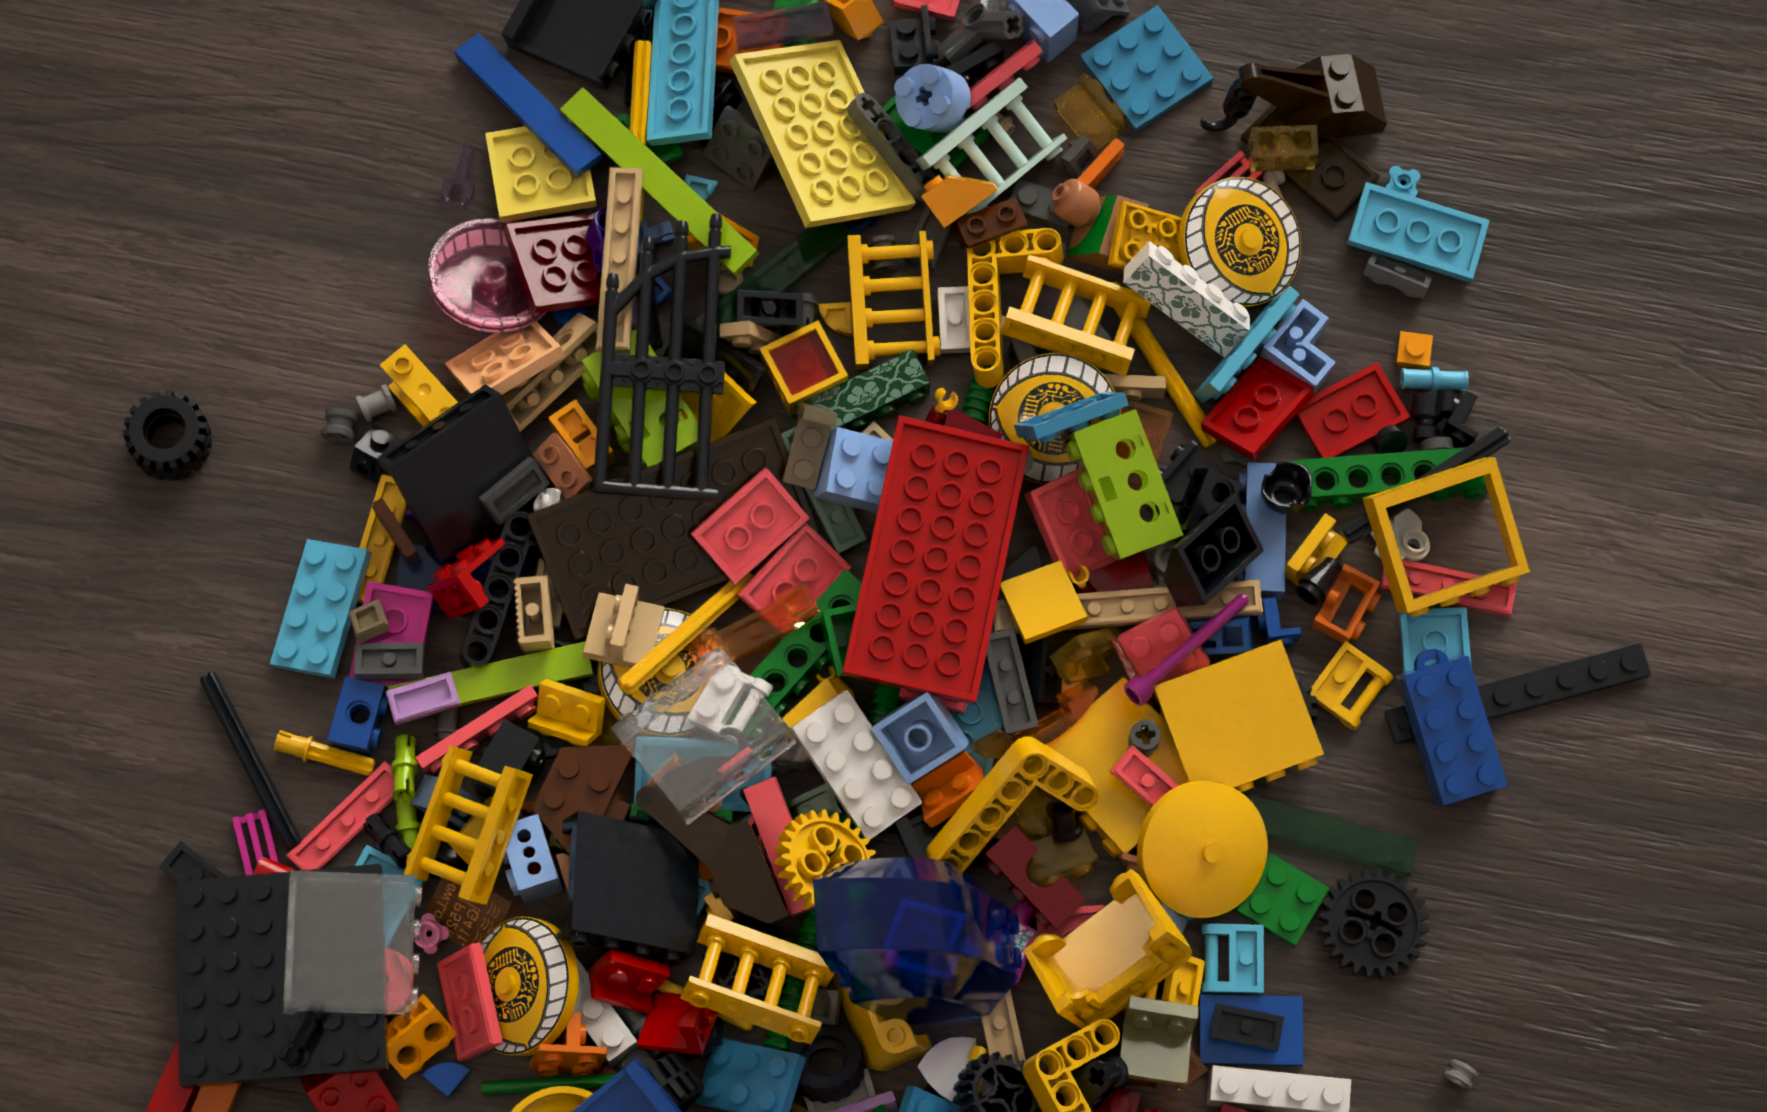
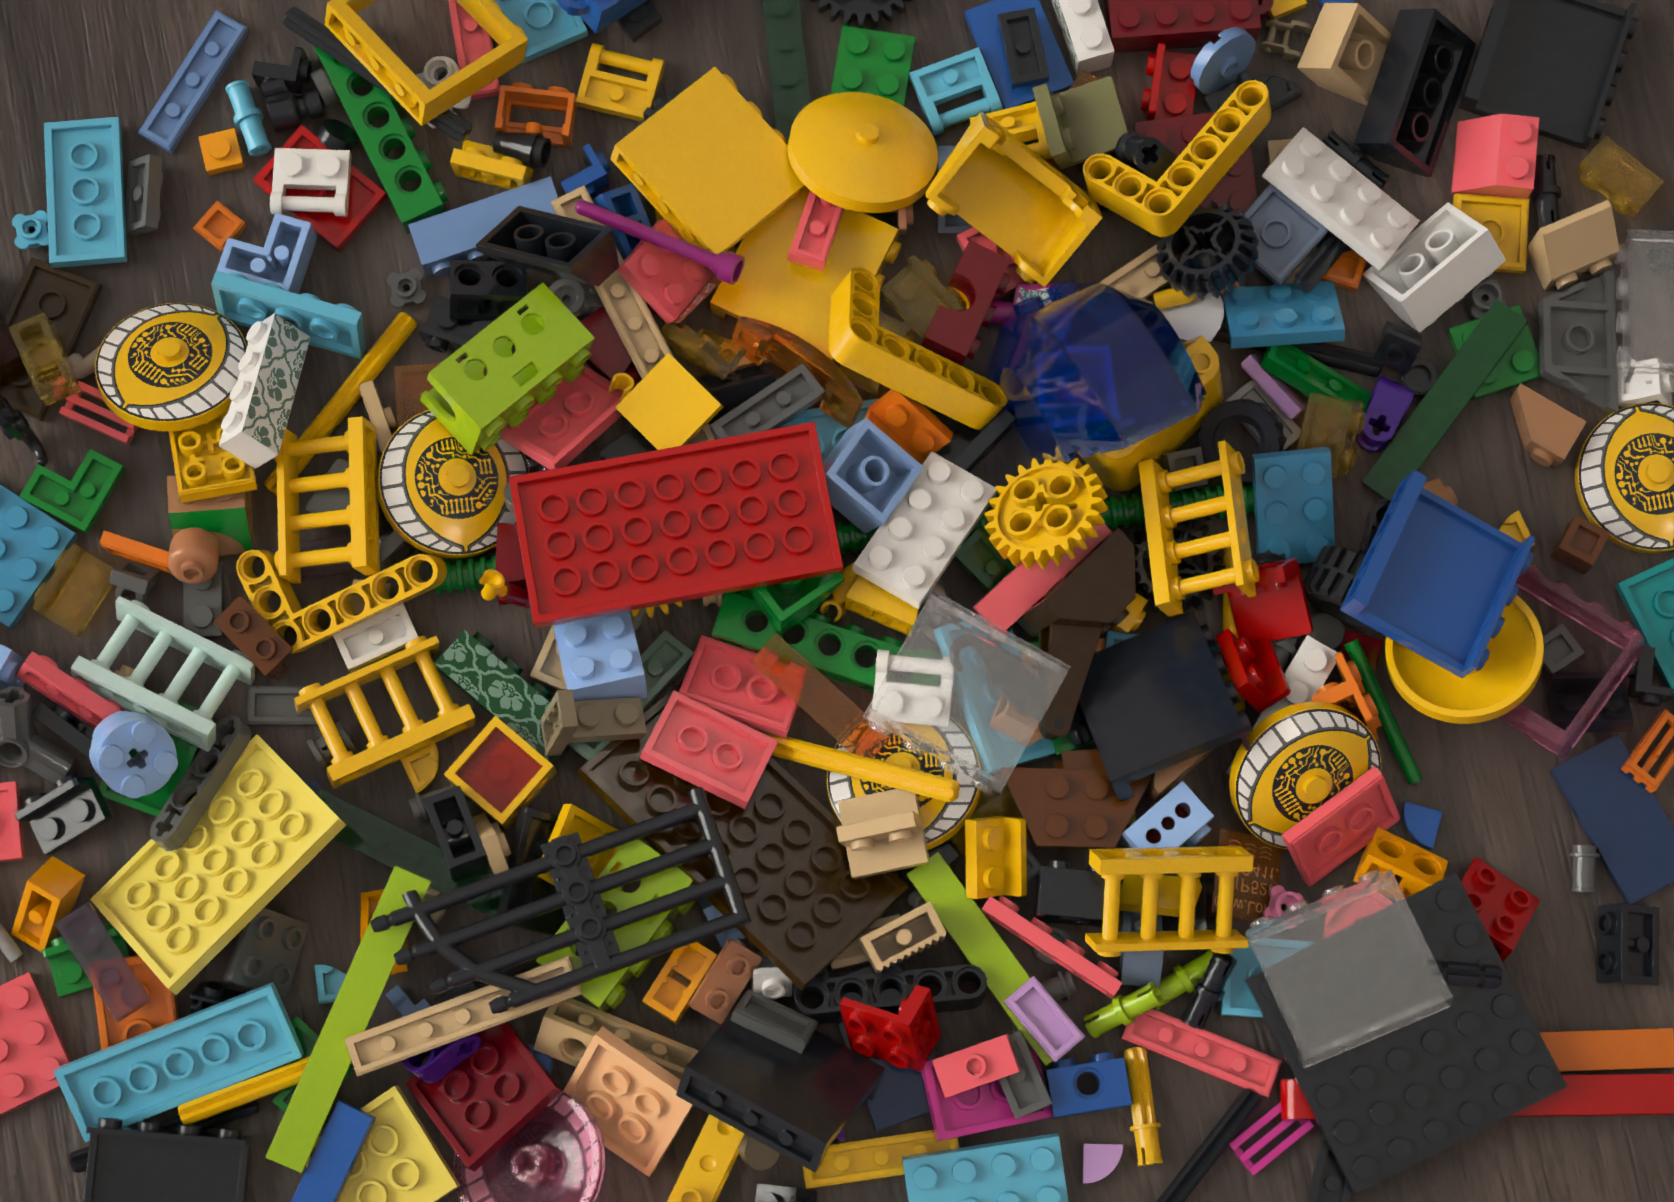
camera: 110 degrees left, 5 degrees up
(299, 704) = (1099, 1161): none -> lavender tile
(369, 621) = (985, 1115): dark tan tile -> none
(395, 531) = (870, 1136): reddish brown tile -> none
(409, 628) = (976, 1065): none -> coral plate
(955, 196) = (237, 683): light orange slope -> none
(1064, 822) = (891, 301): black bush -> none
(1072, 416) = (457, 446): dark azure plate -> none
(1152, 732) = (777, 240): dark grey bush -> none
(1163, 136) = (77, 500): none -> green plate
(1257, 408) = (360, 275): red plate -> none
(1287, 487) = (439, 207): black hair -> none
(1349, 326) = (219, 225): none -> orange tile
(1364, 409) = (313, 171): none -> white plate
(1484, 351) = (193, 82): none -> medium blue tile

